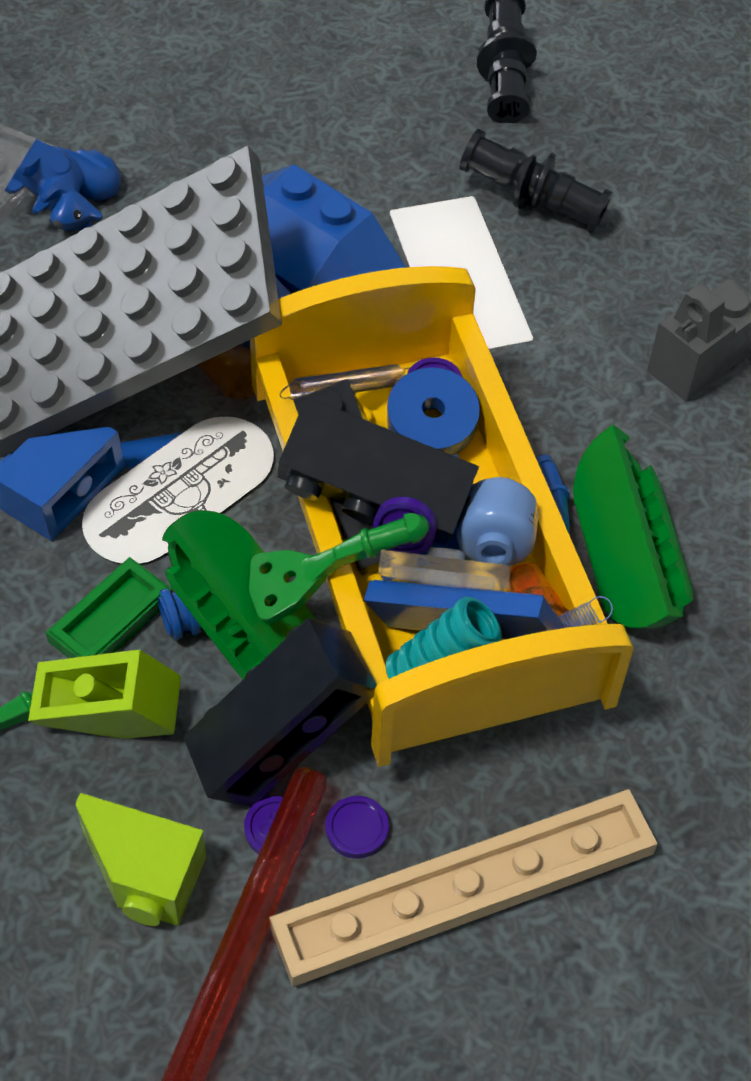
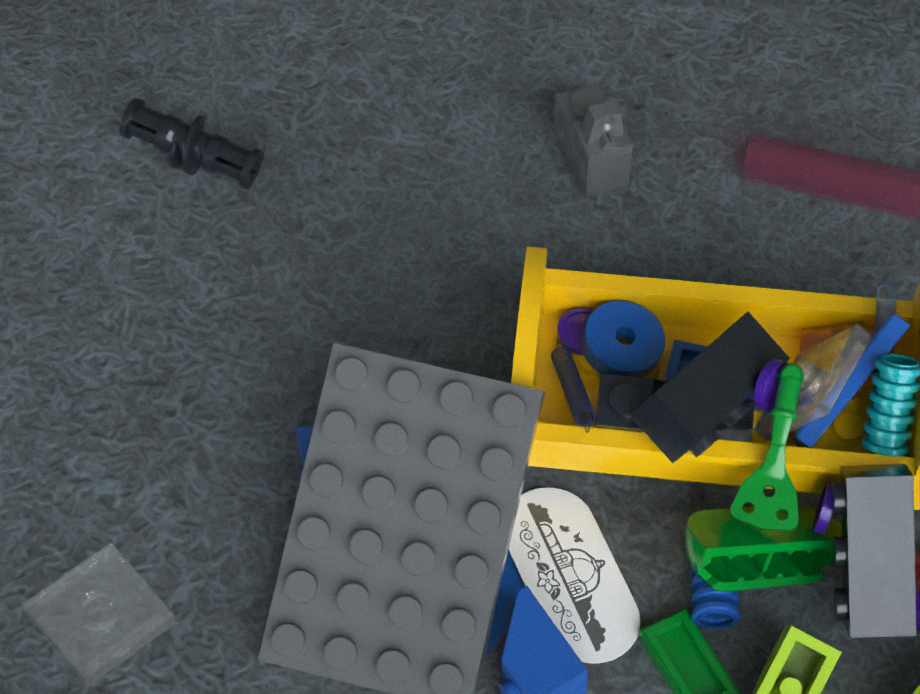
camera: 65 degrees left, 0 degrees up
(63, 180) = (167, 549): blue animal -> none
(321, 232) = (288, 378): blue wedge -> none
(456, 236) = (418, 283): white sticker -> none
(498, 522) = (784, 322): medium blue head -> none
(535, 180) = (359, 182): black piece -> none
(629, 536) = (759, 263): green brick -> none

